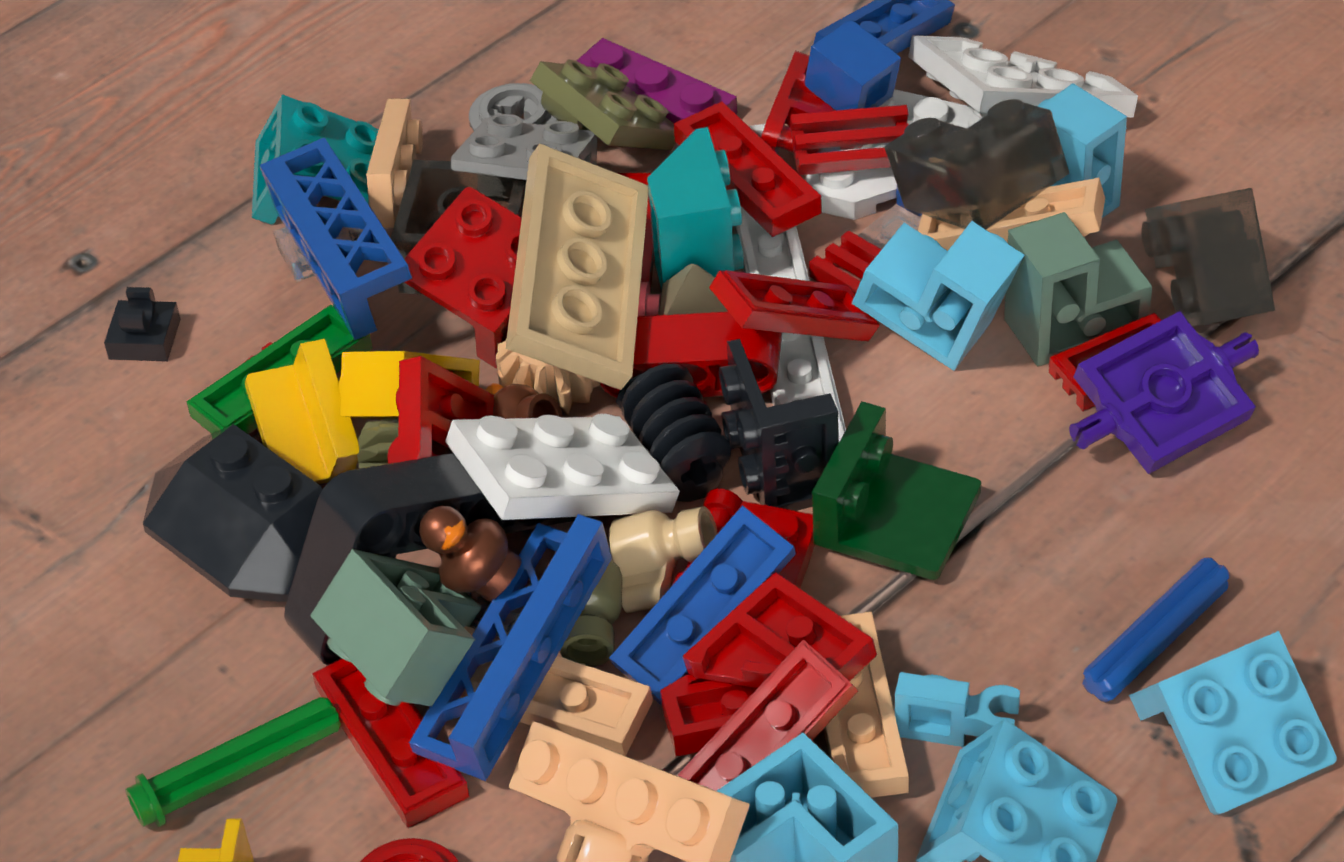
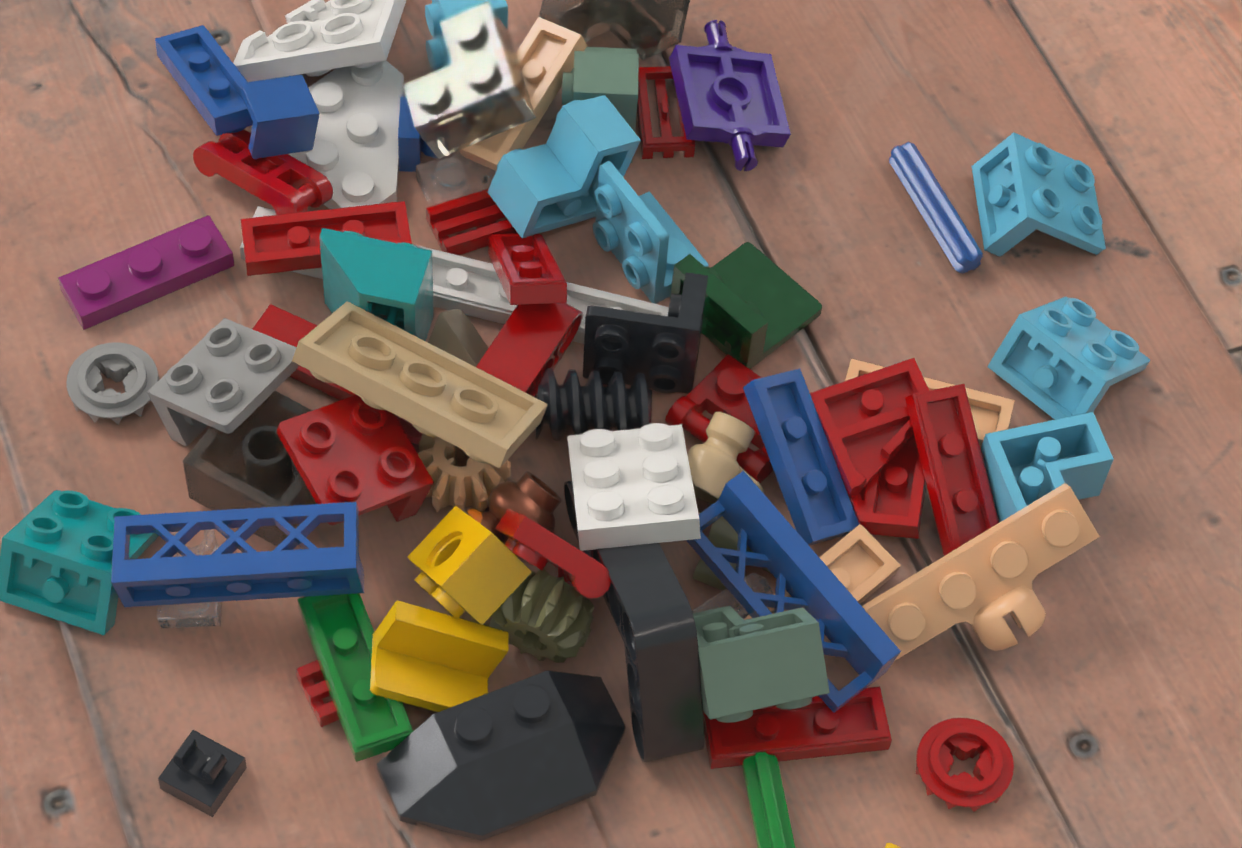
camera: 75 degrees left, 10 degrees up
(392, 159) = (137, 483): light nougat plate -> none
(470, 555) = (708, 578): copper animal -> none
(603, 104) = (161, 309): olive plate -> none
(848, 131) = (361, 126): red tile -> none
(923, 396) = (639, 234): none -> medium azure bracket
(944, 712) = (957, 358): medium azure plate -> none

